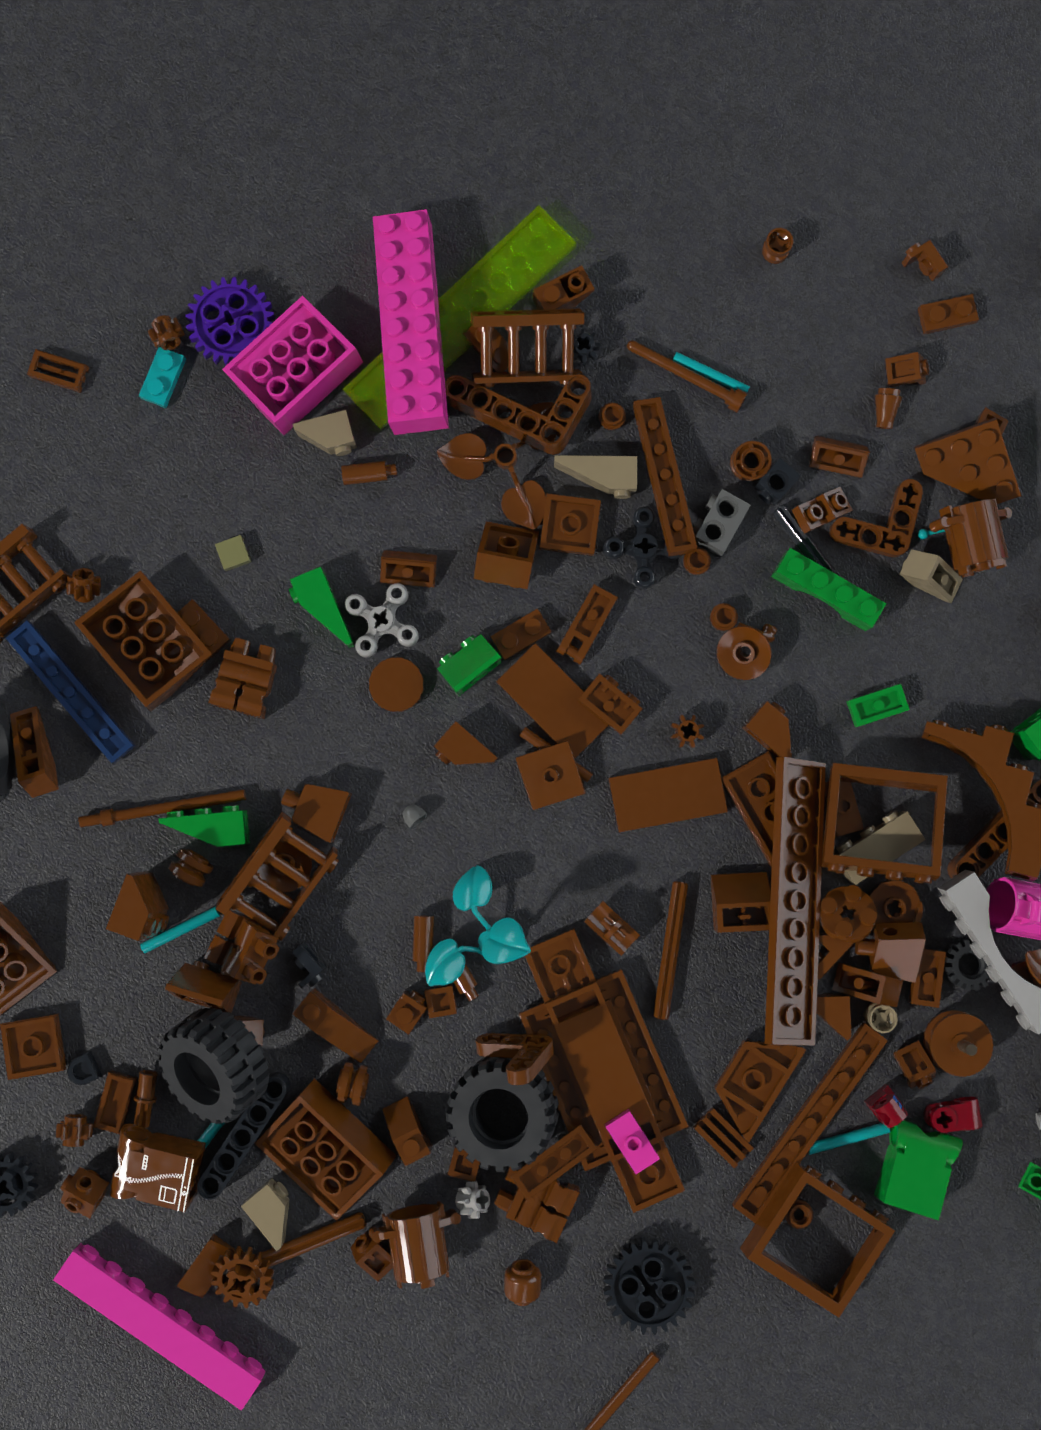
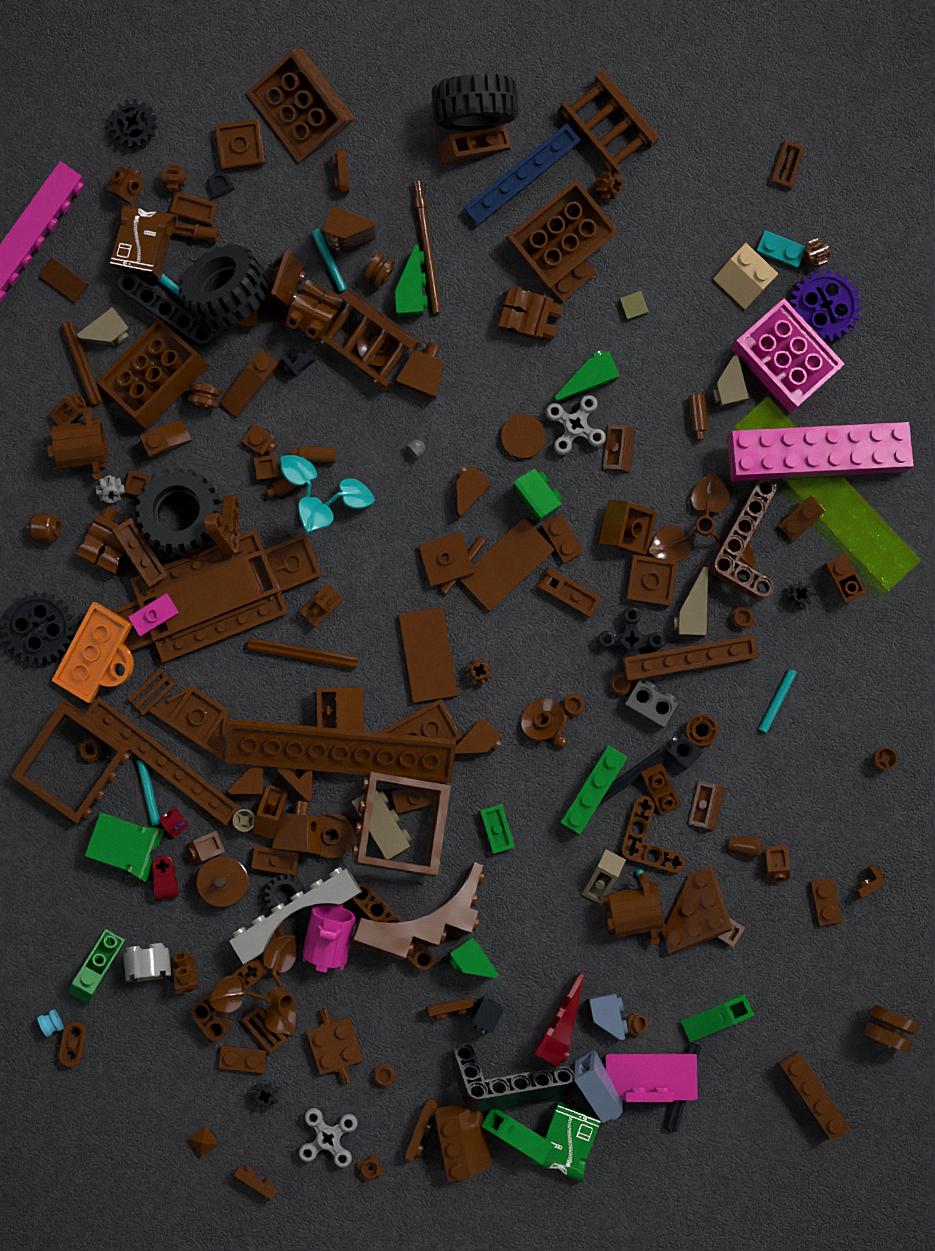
camera: 95 degrees right, 0 degrees up
(79, 916) = (342, 180): none -> reddish brown plate
(195, 417) = (745, 276): none -> tan slope
(242, 1277) = (62, 311): reddish brown gear -> none
(513, 322) = (819, 541): reddish brown fence -> none
(610, 703) = (503, 608): reddish brown bracket -> none
(682, 1213) = (95, 654): none -> orange plate
(732, 397) = (756, 717): reddish brown piece -> none
(843, 928) = (317, 789): reddish brown plate -> none

